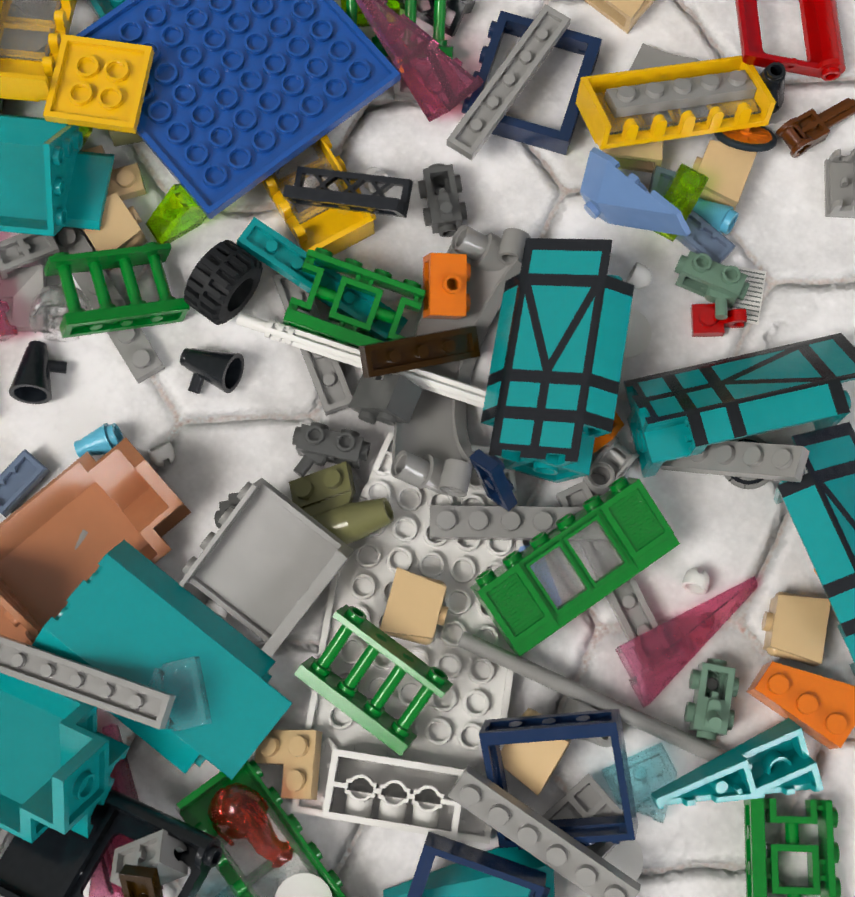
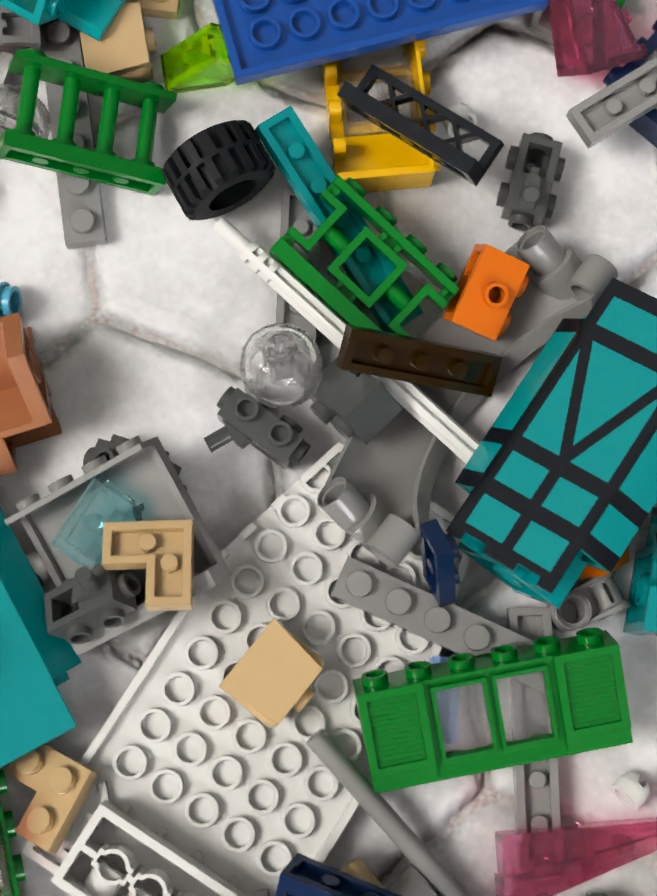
camera: 15 degrees right, 5 degrees up
(161, 452) = (57, 346): white hinge -> none
(216, 367) = (166, 270): black piece -> none
(251, 557) = (82, 531): none -> clear light blue slope
(265, 610) = (89, 602): none -> dark grey brick
(297, 550) = (163, 550): none -> tan plate
(325, 395) = (281, 365): none -> clear cylinder
(329, 498) = (227, 493): olive plate -> none
(345, 694) = (150, 760): green fence -> none

